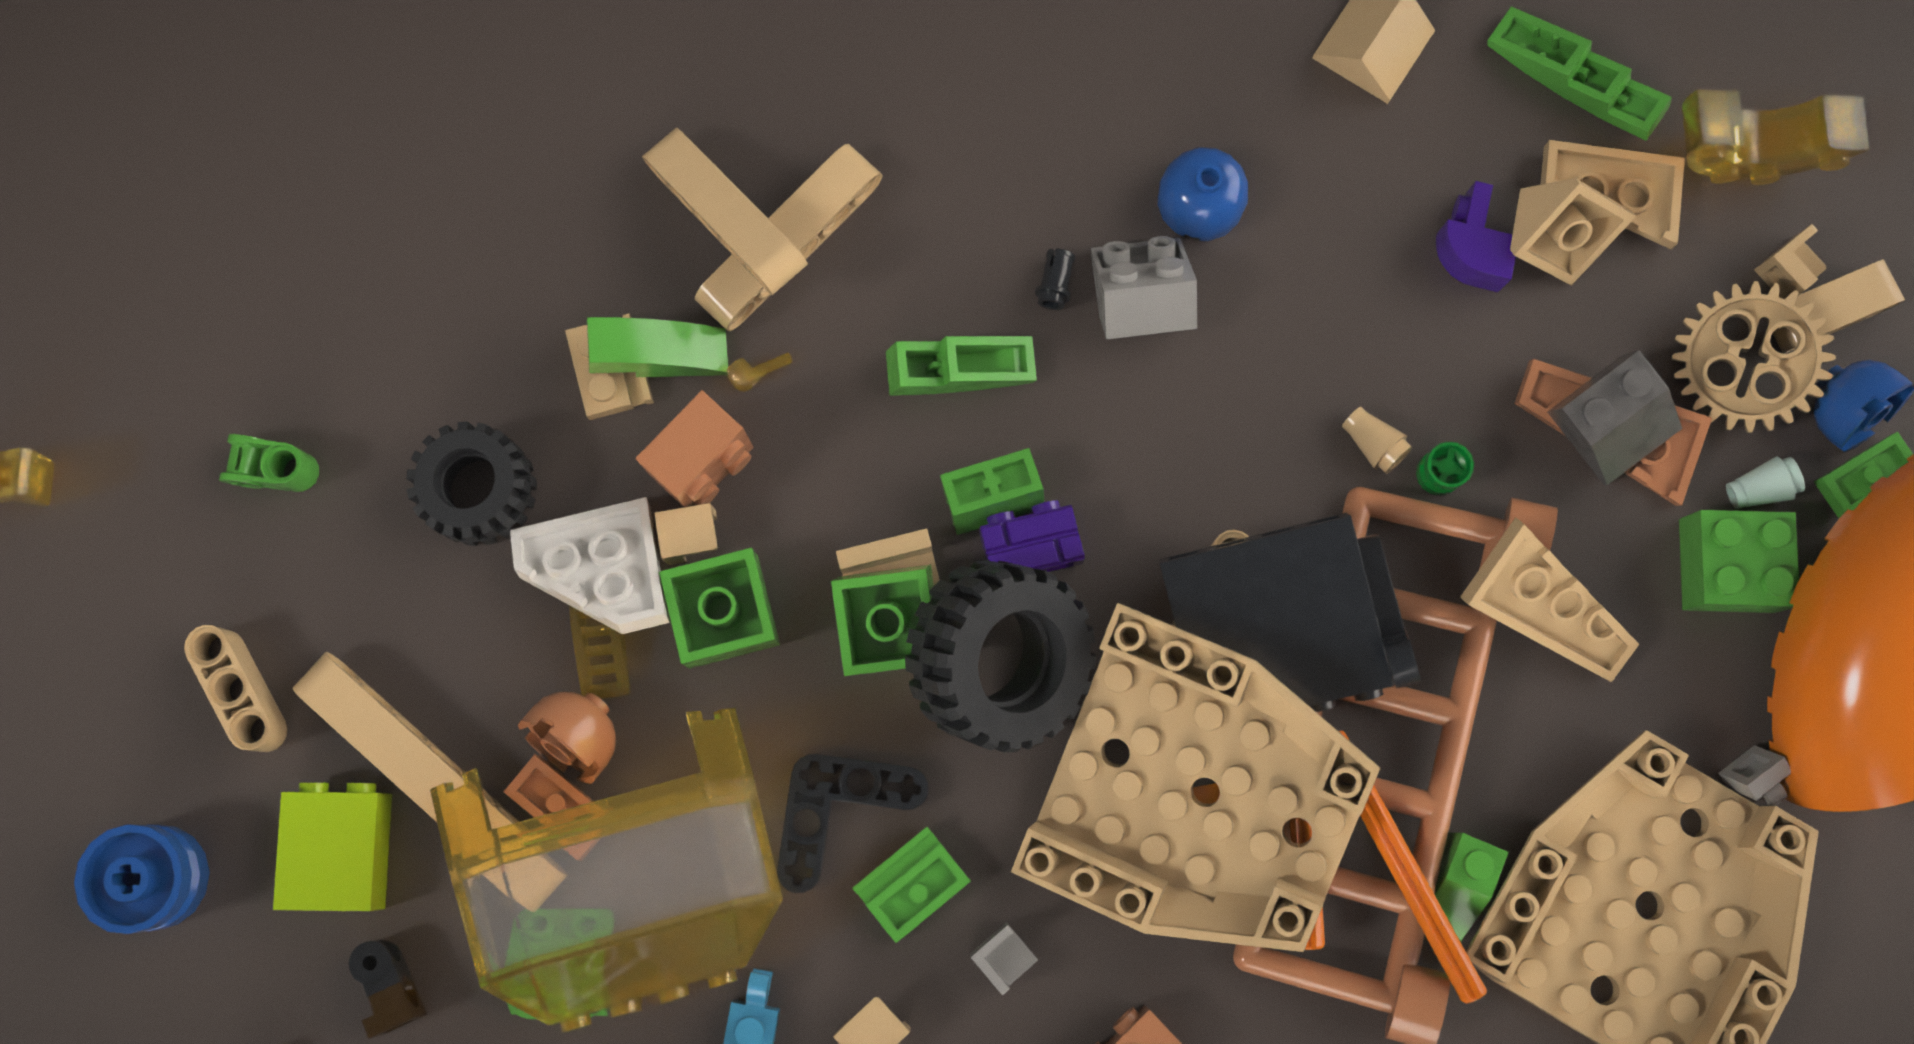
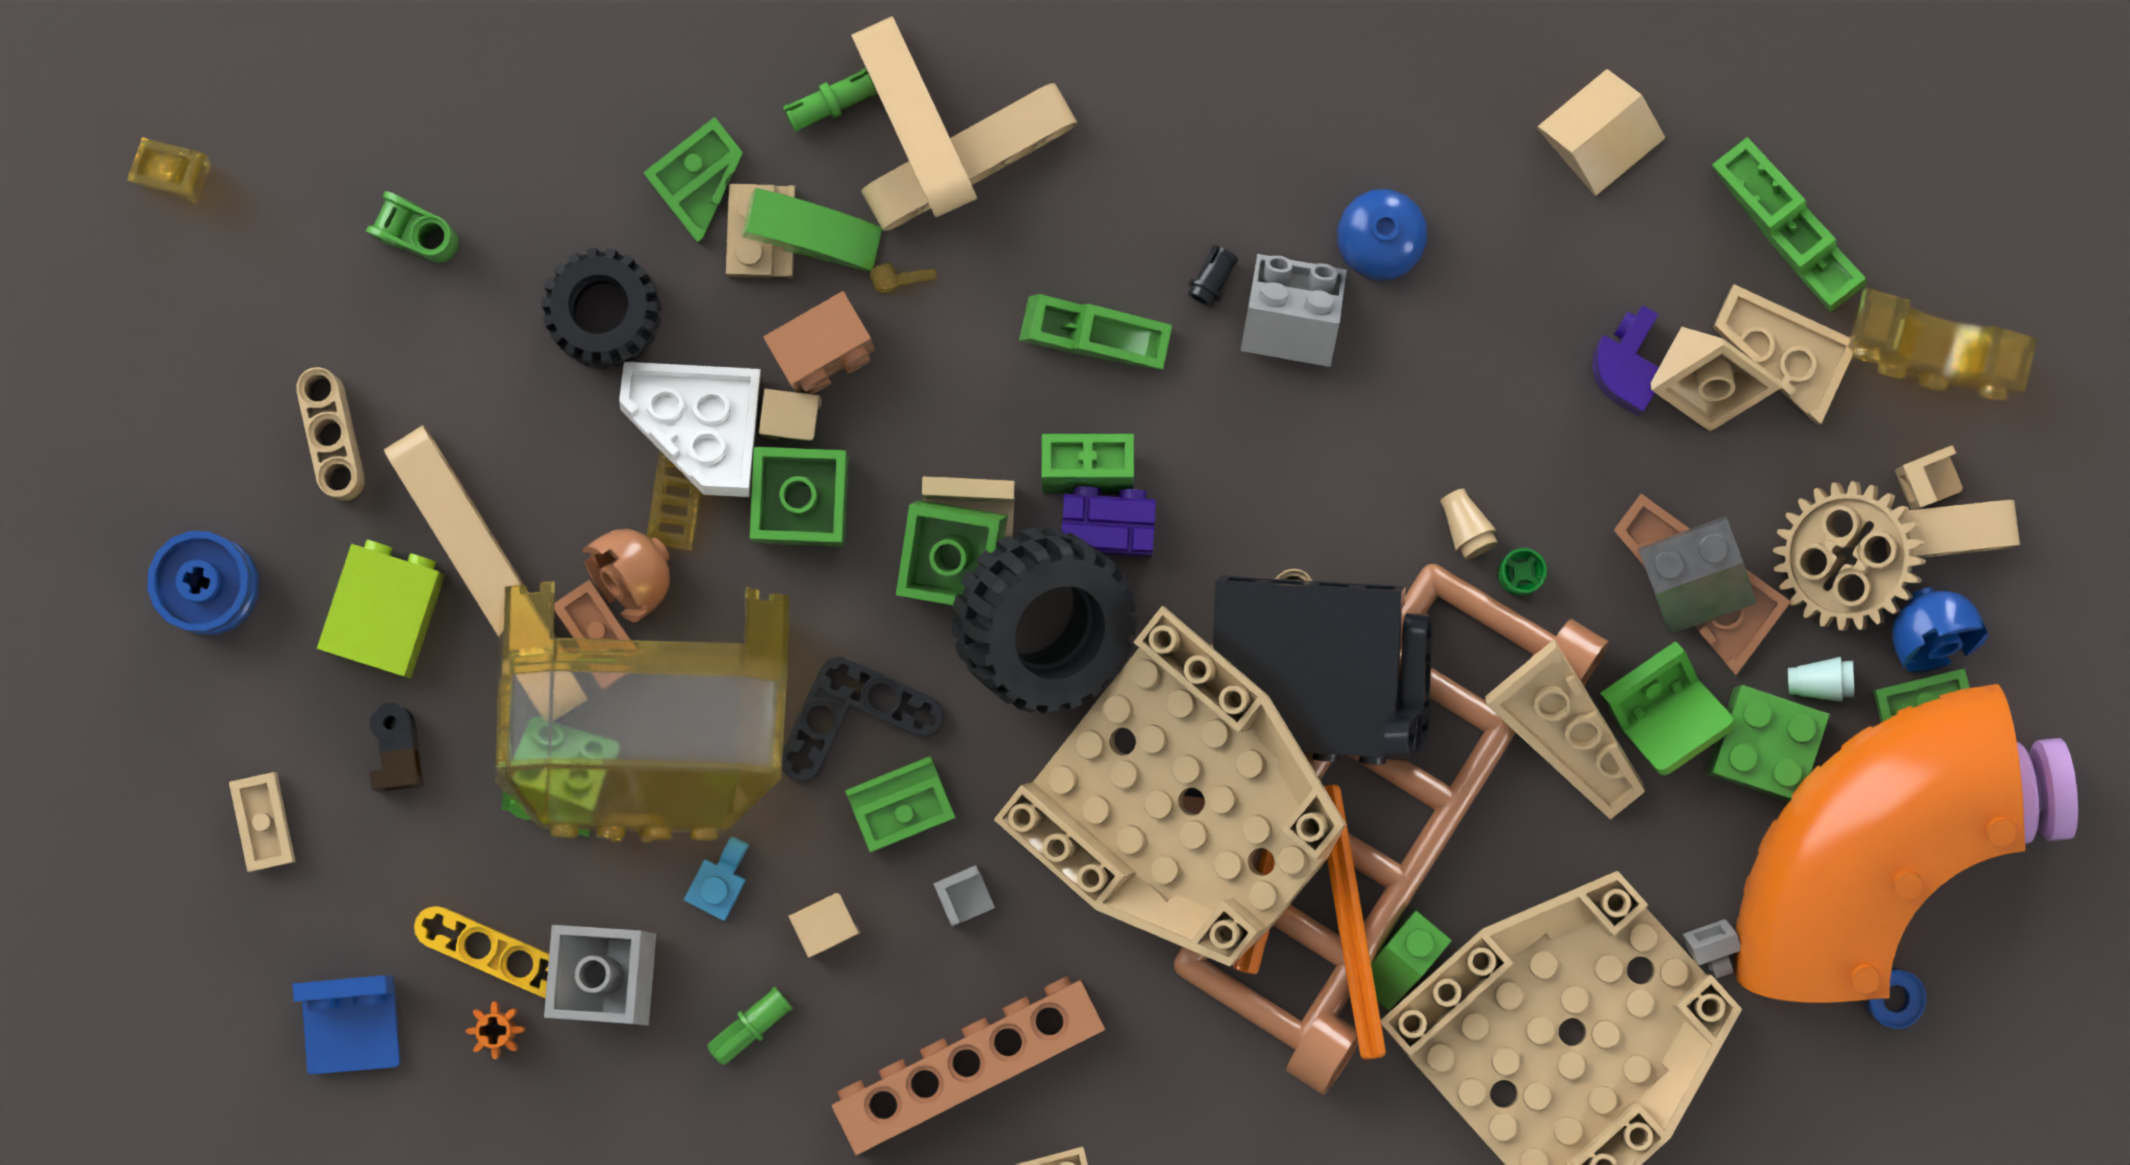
camera: 20 degrees right, 5 degrees up
(531, 332) = (696, 175): none -> bright green wing
(640, 224) = (830, 100): none -> bright green pin
(1635, 559) = (1667, 710): none -> bright green bracket

